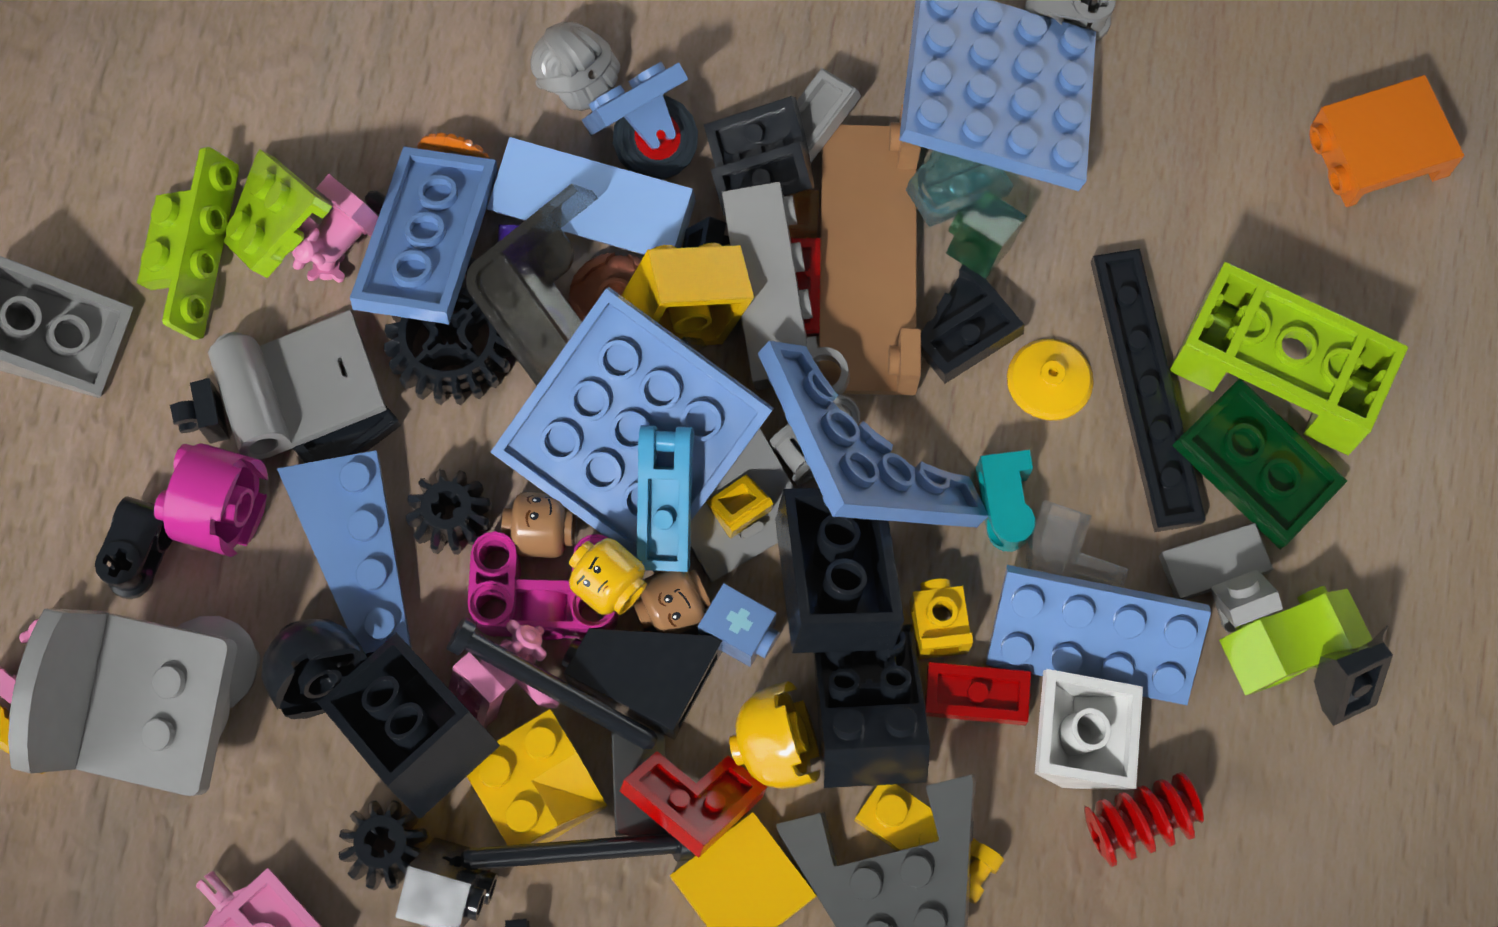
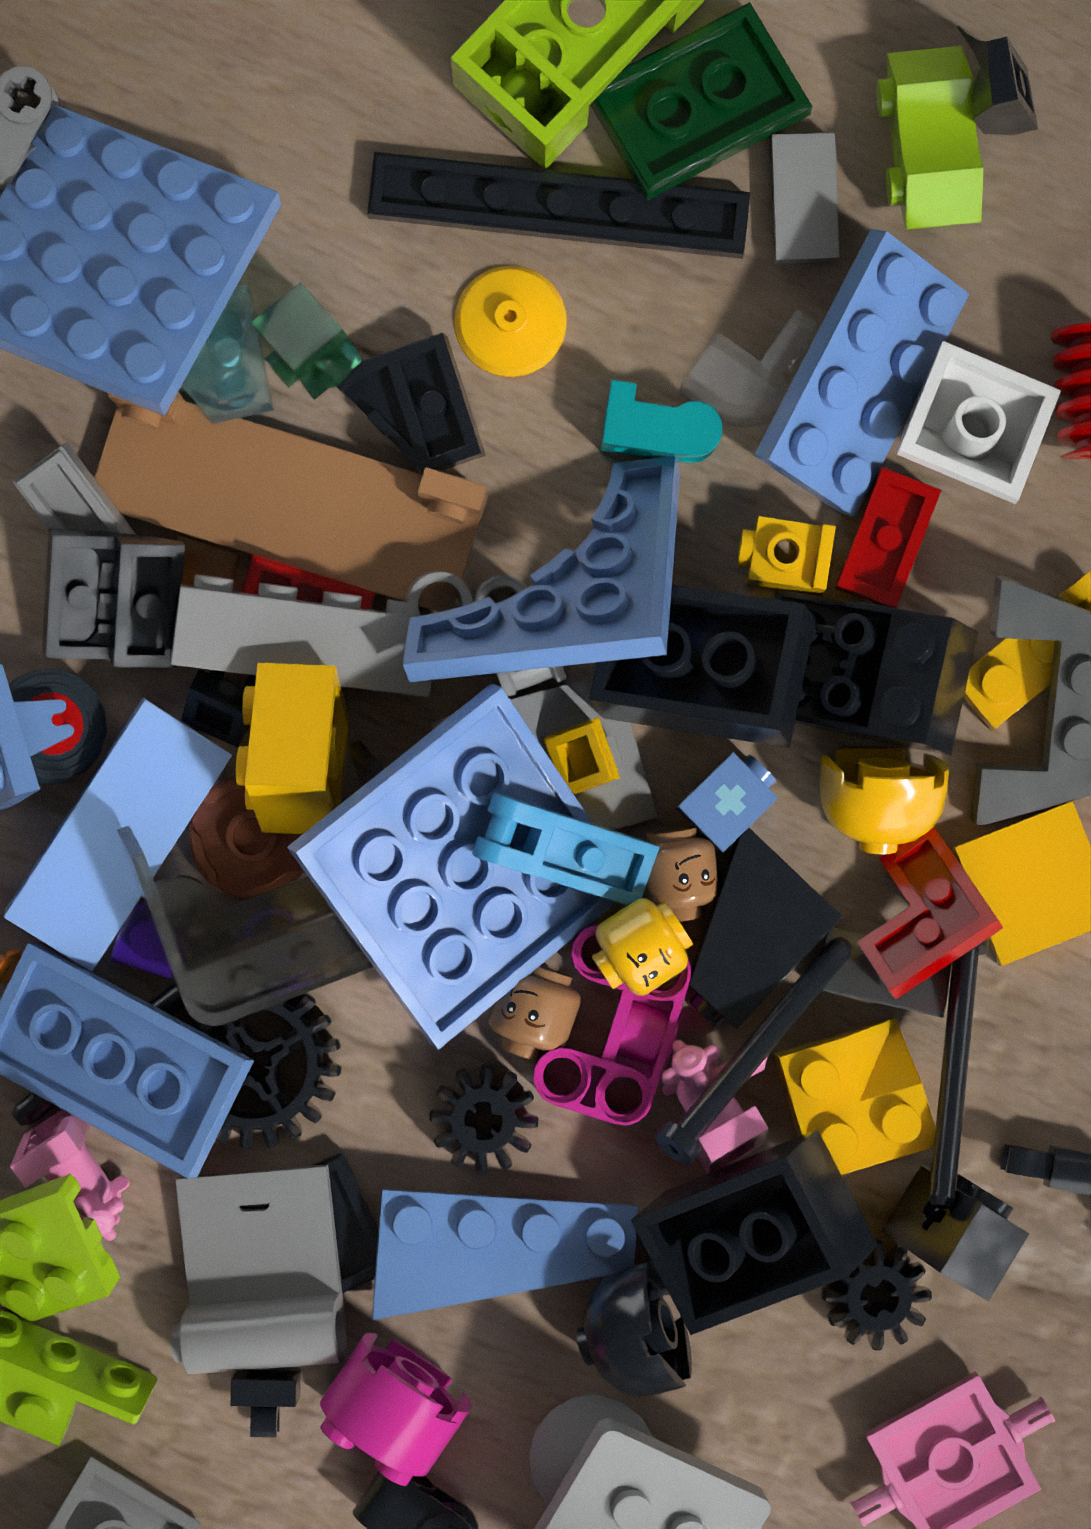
camera: 80 degrees left, 15 degrees up
(1245, 599) = (872, 181): light grey bracket -> none

